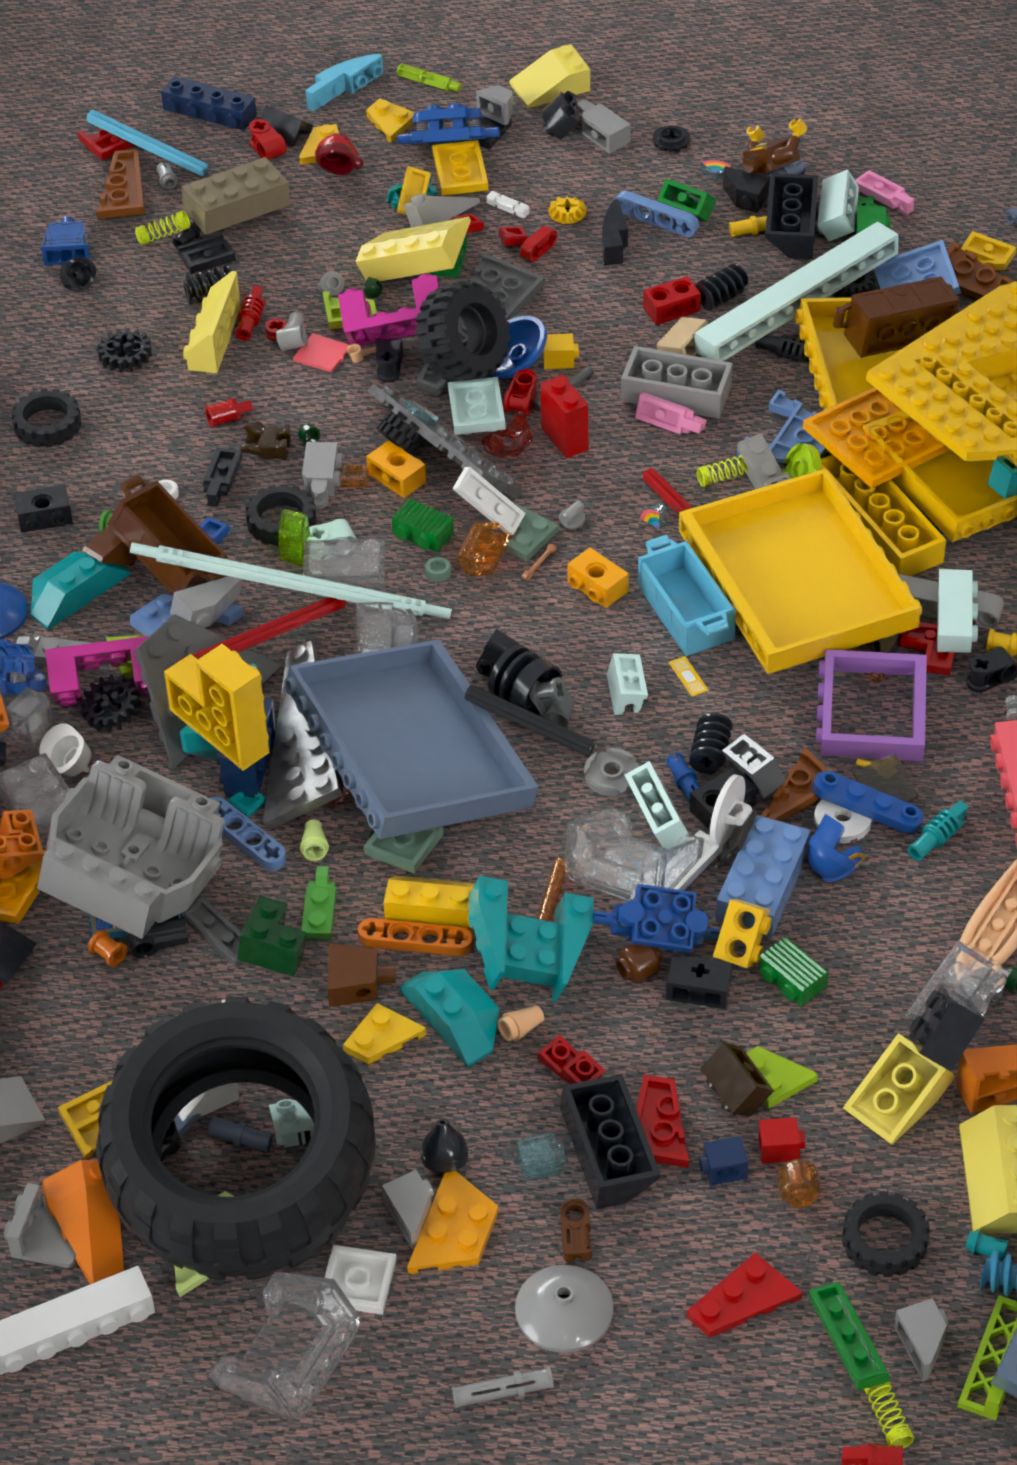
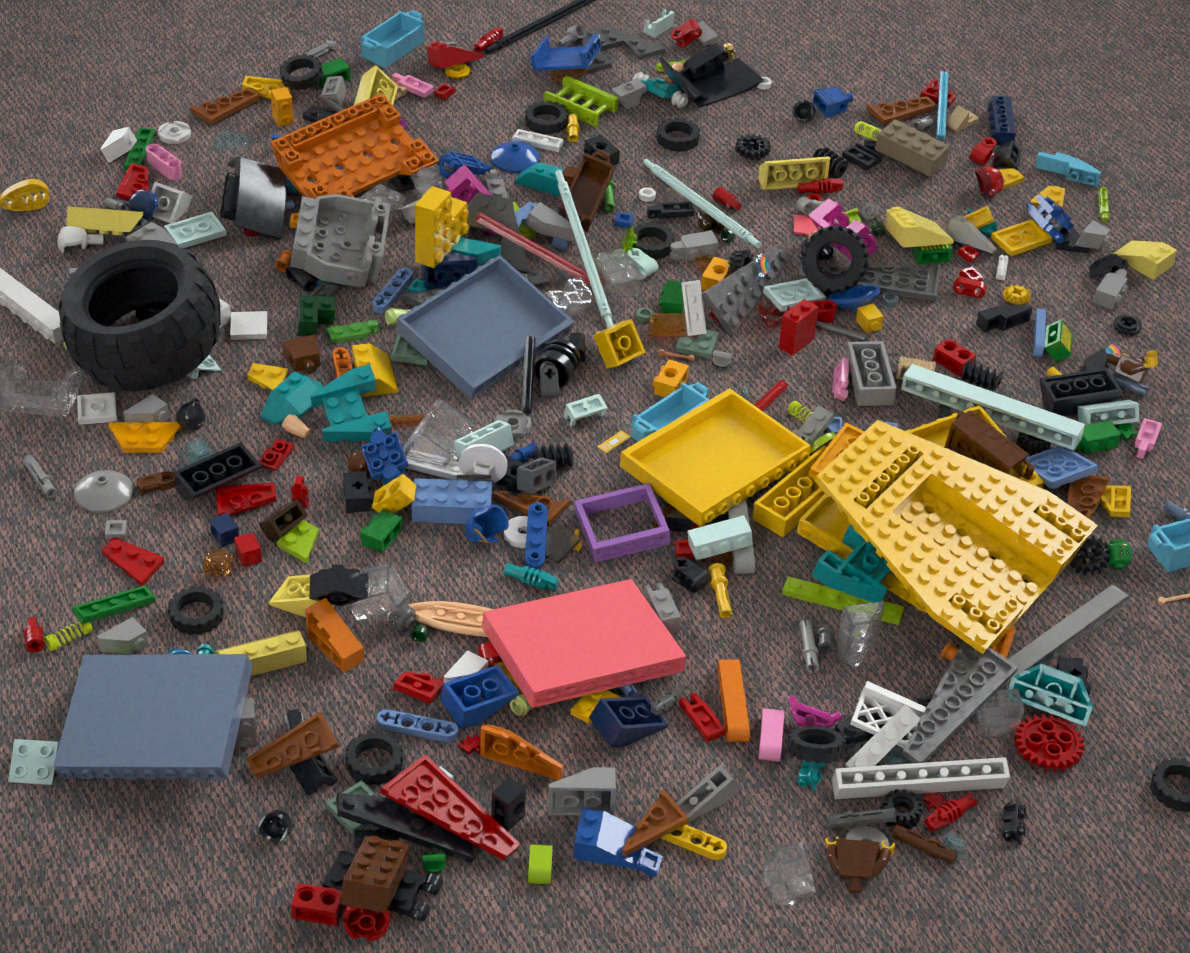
camera: 65 degrees right, 5 degrees down
(181, 137) = (961, 119): none -> tan slope
(234, 435) = (702, 203): none -> light aqua axle
(511, 606) = (619, 343): none -> yellow piece
(671, 1304) = (116, 529): none -> light grey plate
(686, 1044) = (300, 492): none -> red hinge

